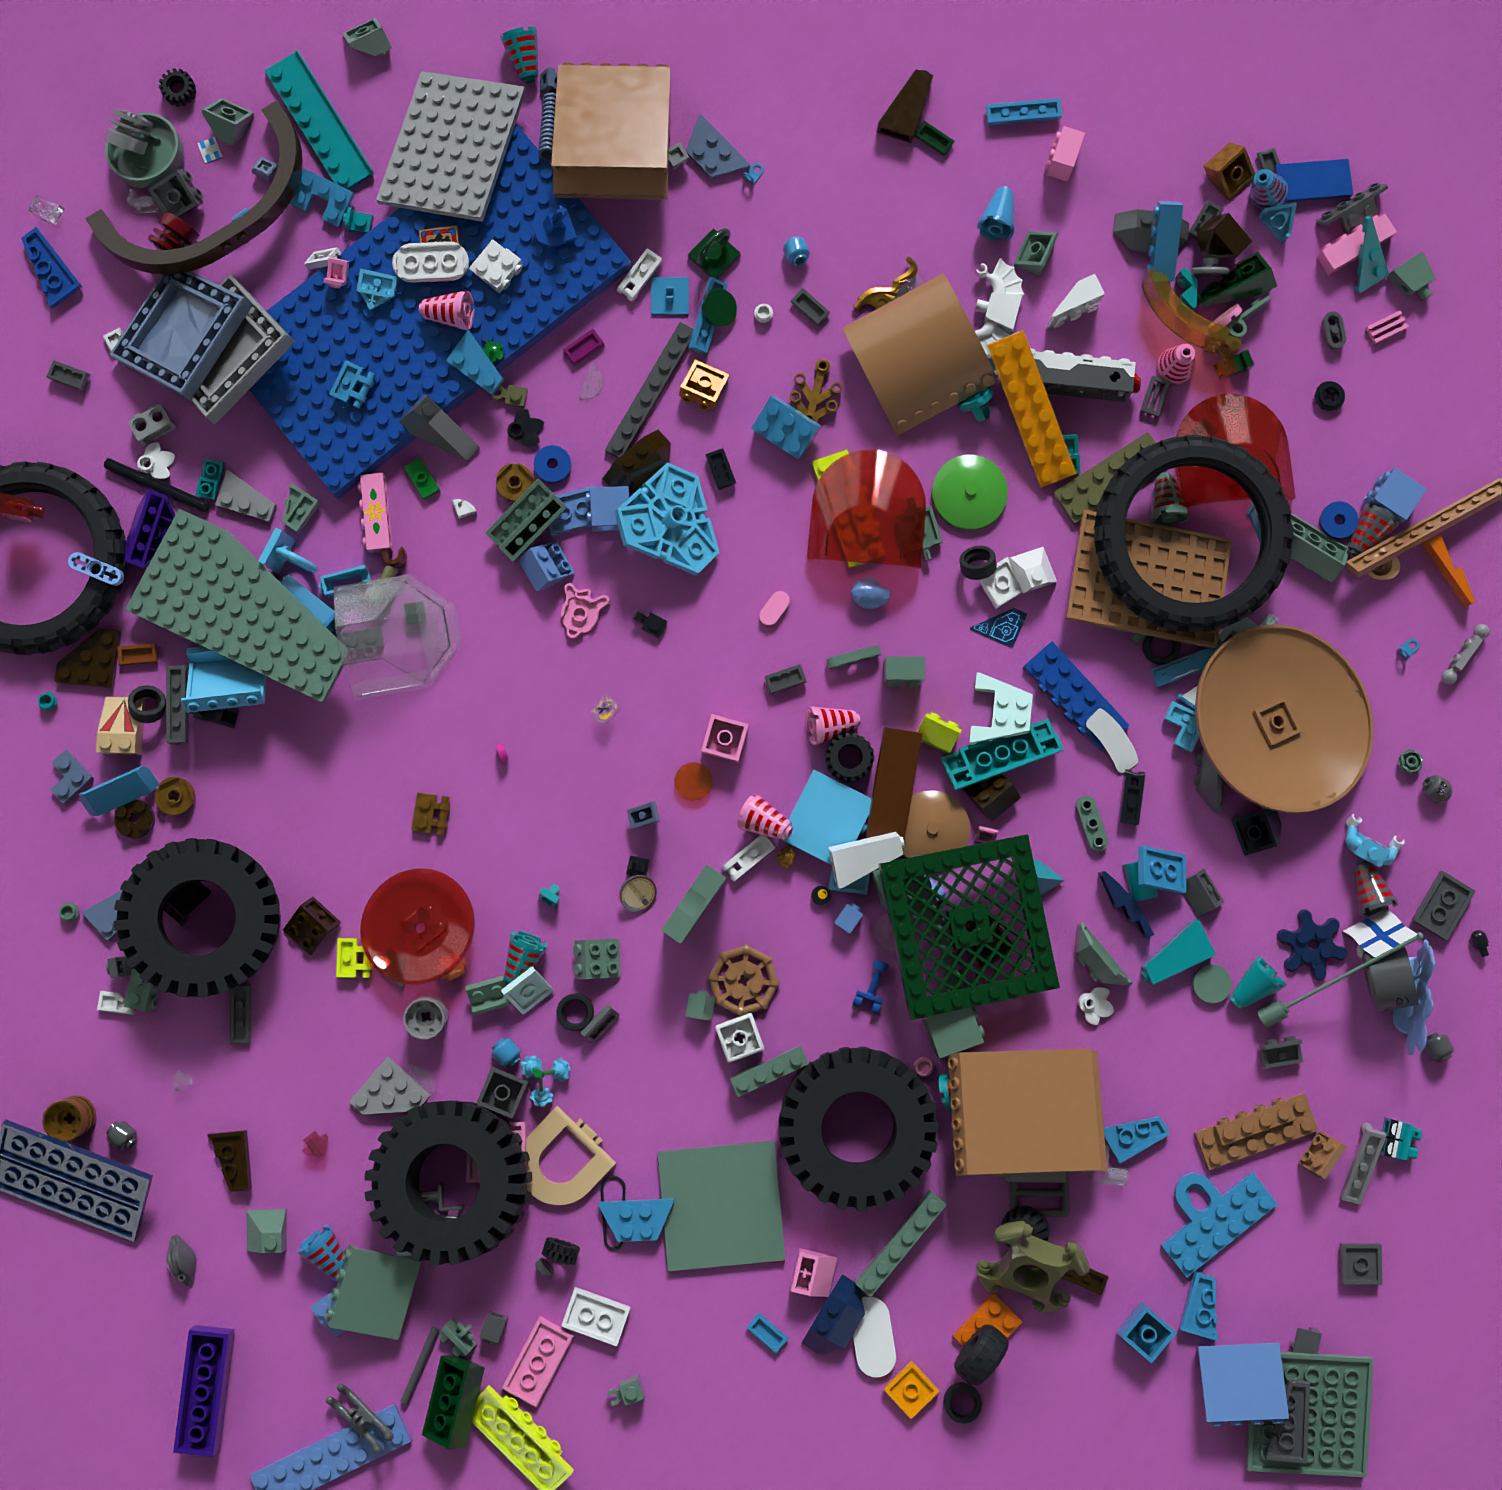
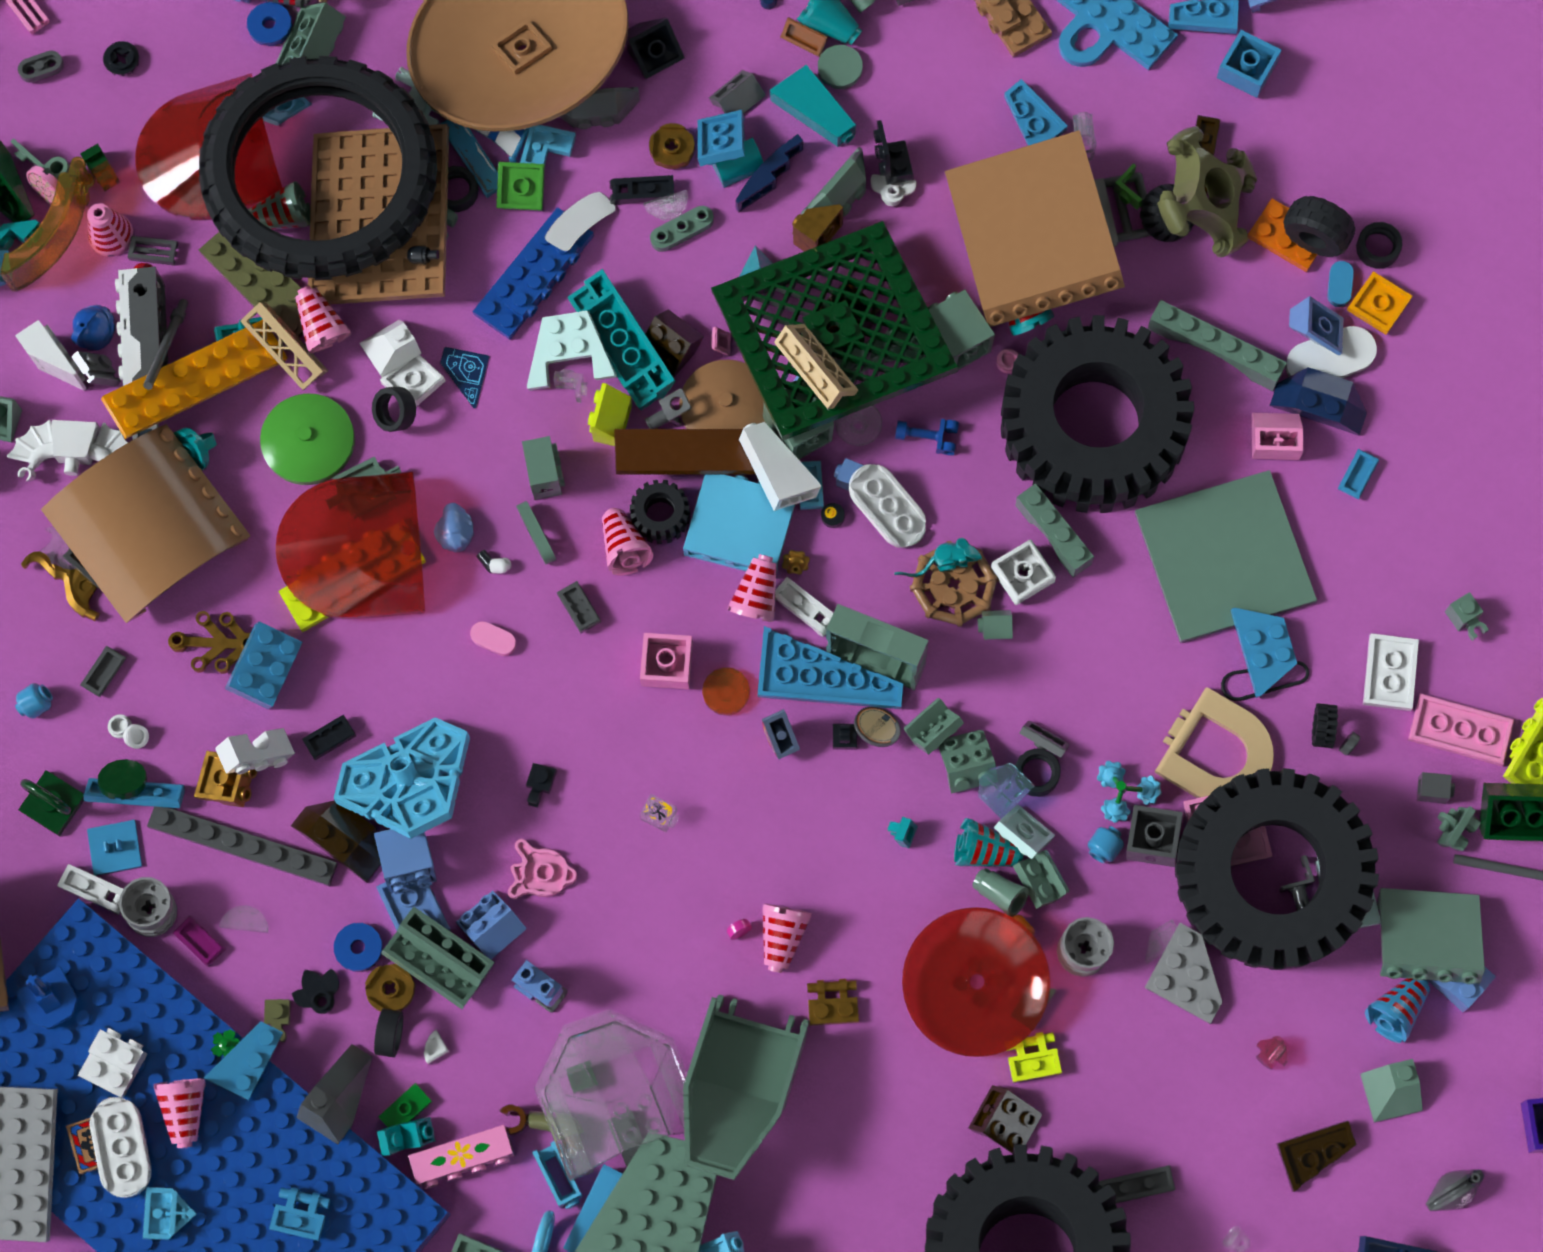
camera: 95 degrees left, 10 degrees down
(370, 724) = (736, 1088): none -> sand green windscreen
(400, 477) = (406, 1136): none -> teal slope
(478, 474) = (388, 1033): none -> black tyre
(483, 591) = (537, 984): none -> medium blue hips
(484, 961) = (1001, 891): none -> sand green plant
(490, 785) = (782, 934): none -> bright pink cone
(565, 982) = (1003, 788): none -> clear light blue slope
(609, 301) = (135, 904): none -> light grey wheel
(628, 937) = (933, 726): none -> sand green bracket
(693, 846) = (810, 674): none -> dark azure wing
(718, 422) = (269, 749): none -> white arch
(752, 323) = (136, 736): none -> white tile
(762, 979) = (949, 556): none -> teal animal
(817, 940) = (887, 505): none -> white tile
(833, 620) = (493, 566): none -> arm
(899, 1332) = (1318, 324): none -> medium blue slope
(932, 780) = (668, 412): none -> dark grey bracket
(935, 900) = (813, 366): none -> tan fence
(935, 1360) = (1340, 284): none -> dark azure tile
(977, 706) = (570, 380): none -> clear bracket
(1047, 1197) = (1124, 193): none -> bright green bracket
(1054, 490) = (290, 339): none -> tan fence
(1059, 334) = (96, 367): none -> dark grey plate
(1064, 515) = (319, 320): none -> bright pink cone
(1066, 932) = (817, 226): none -> pearl gold slope
(1090, 405) = (177, 318): none -> dark grey bar
(1095, 338) = (93, 327): none -> blue helmet
(1102, 605) = (421, 254): none -> black cylinder
(1112, 815) = (668, 207): none -> clear plate
(1118, 1009) = (893, 156): none -> black bracket
(1153, 698) = (520, 186): none -> bright green tile
(1174, 822) = (678, 157): none -> pearl gold plate
(1243, 958) = (803, 36): none -> dark orange tile

